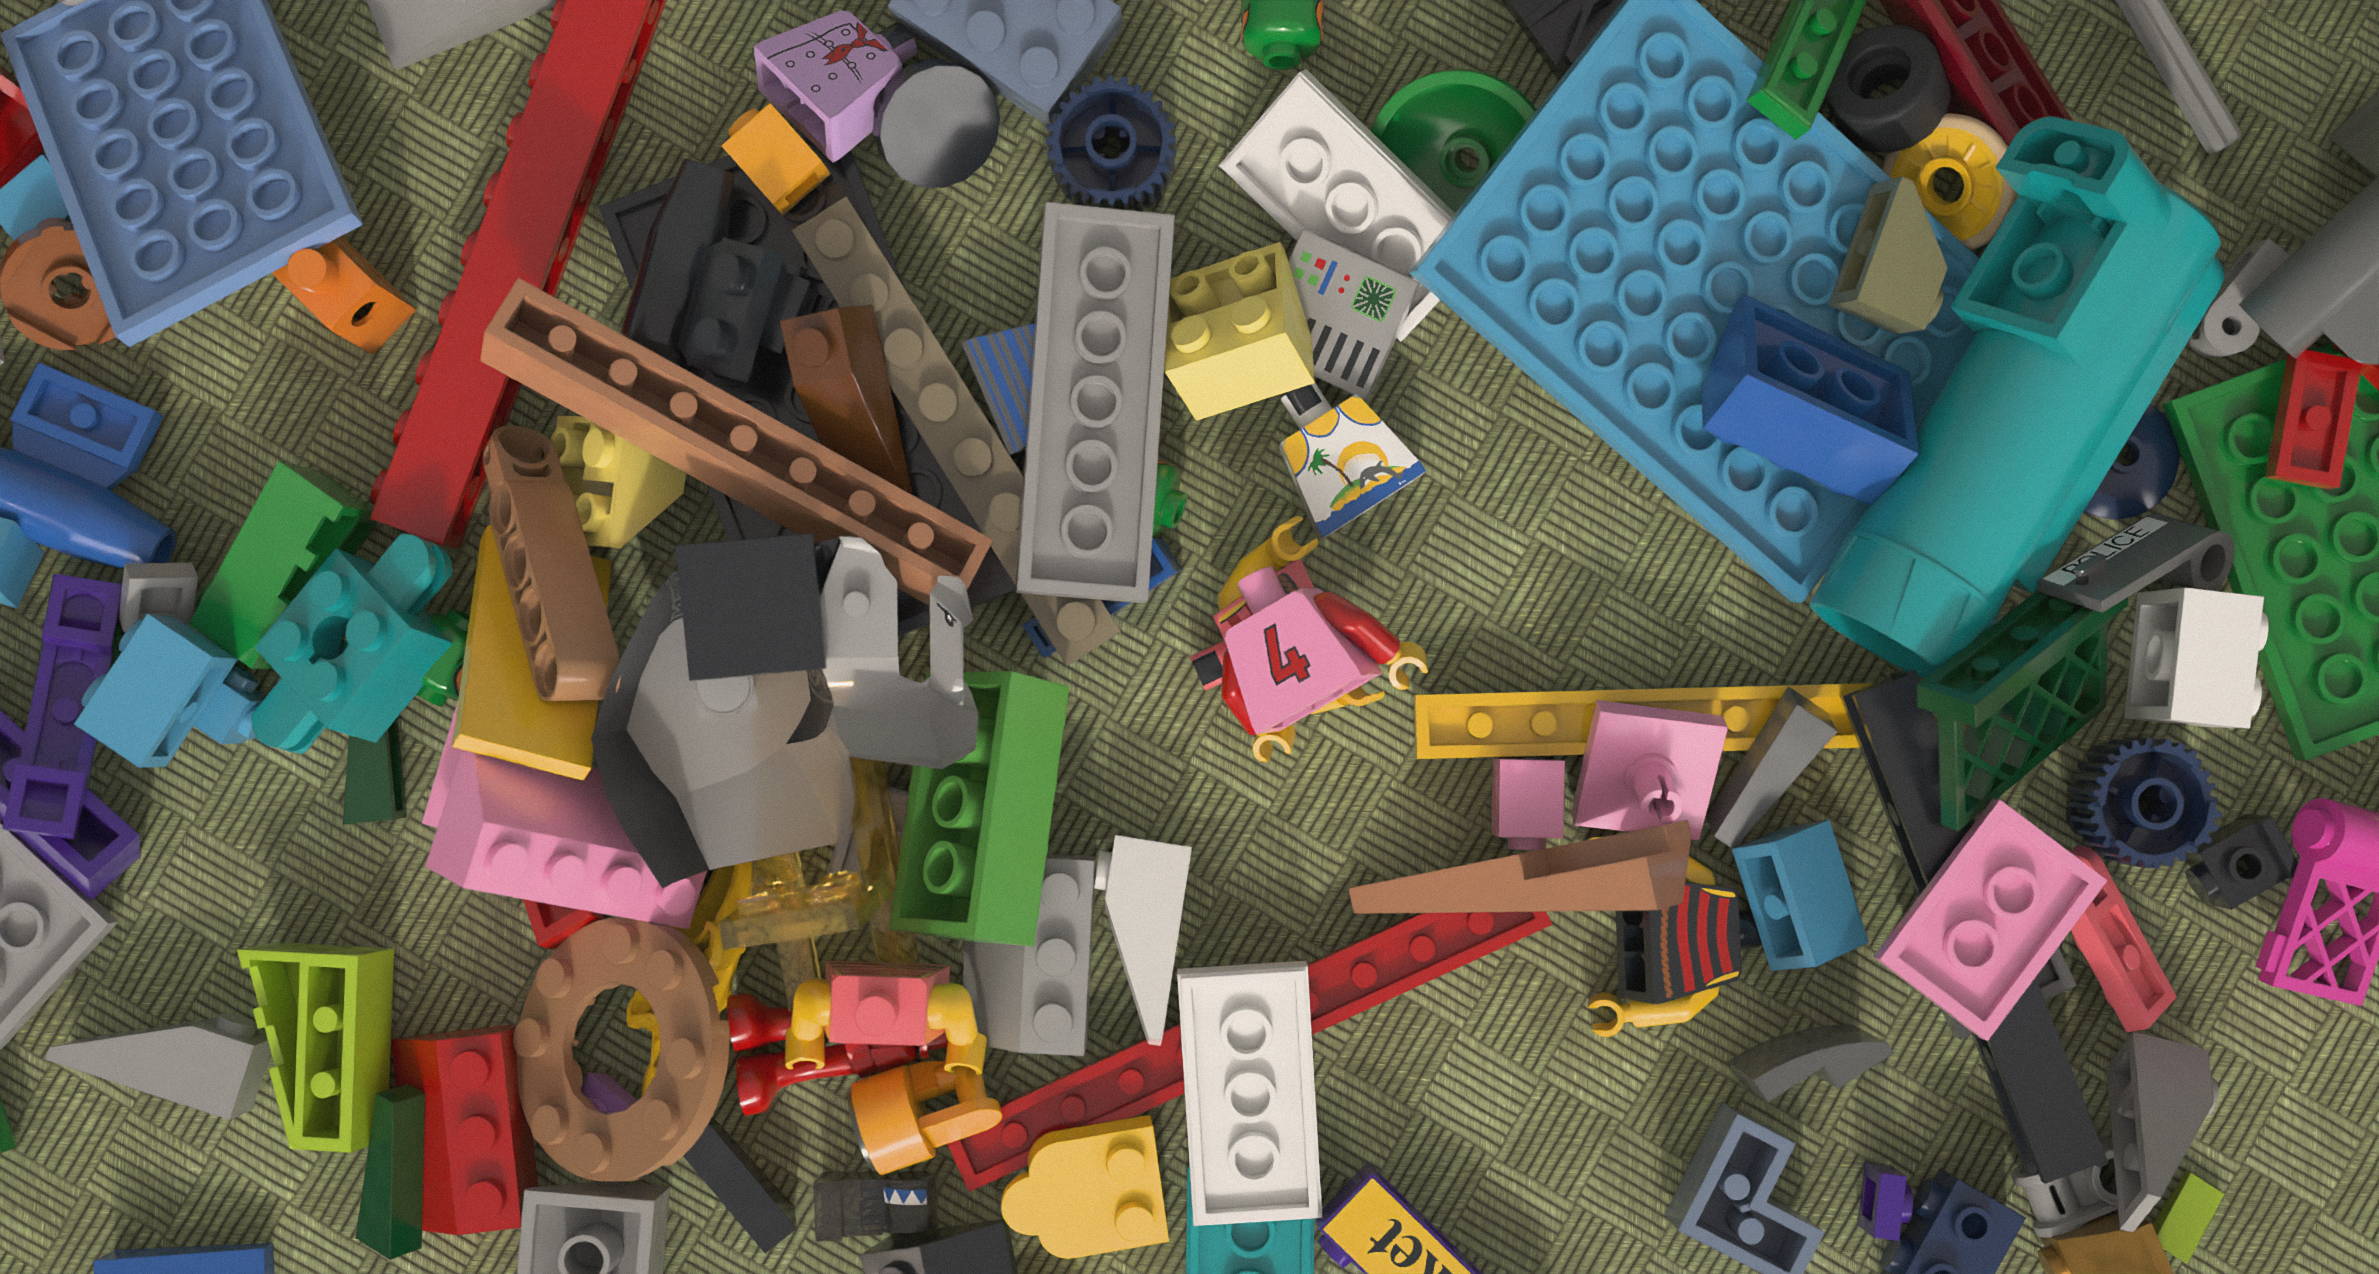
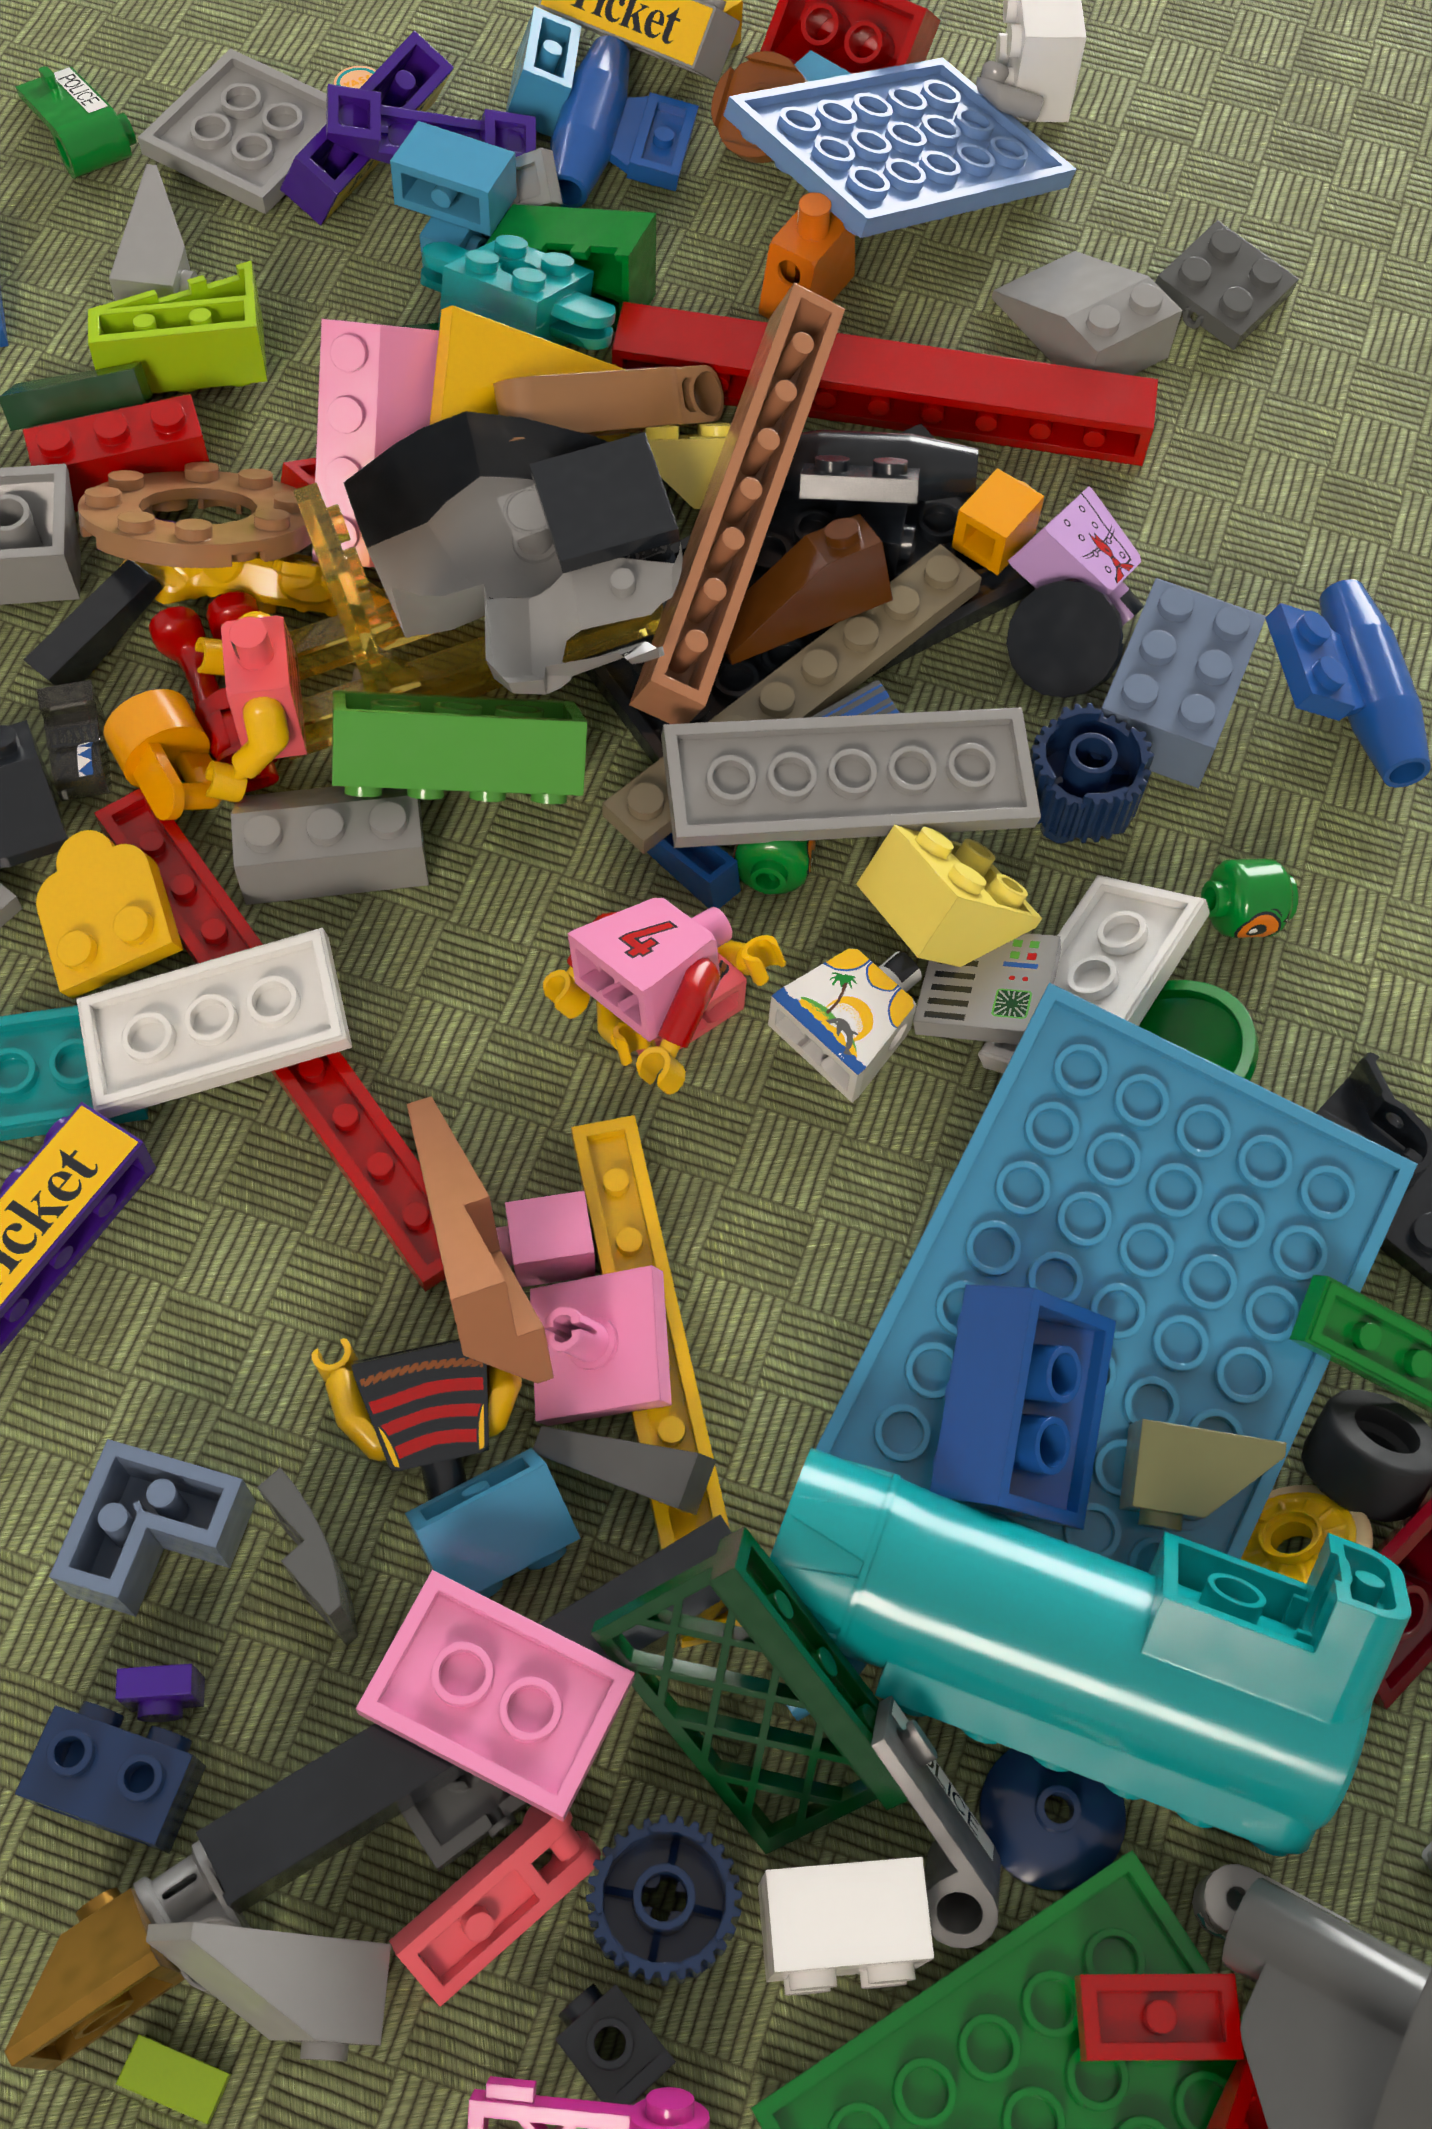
camera: 70 degrees right, 25 degrees down
(1144, 910) = (371, 912): white slope -> none

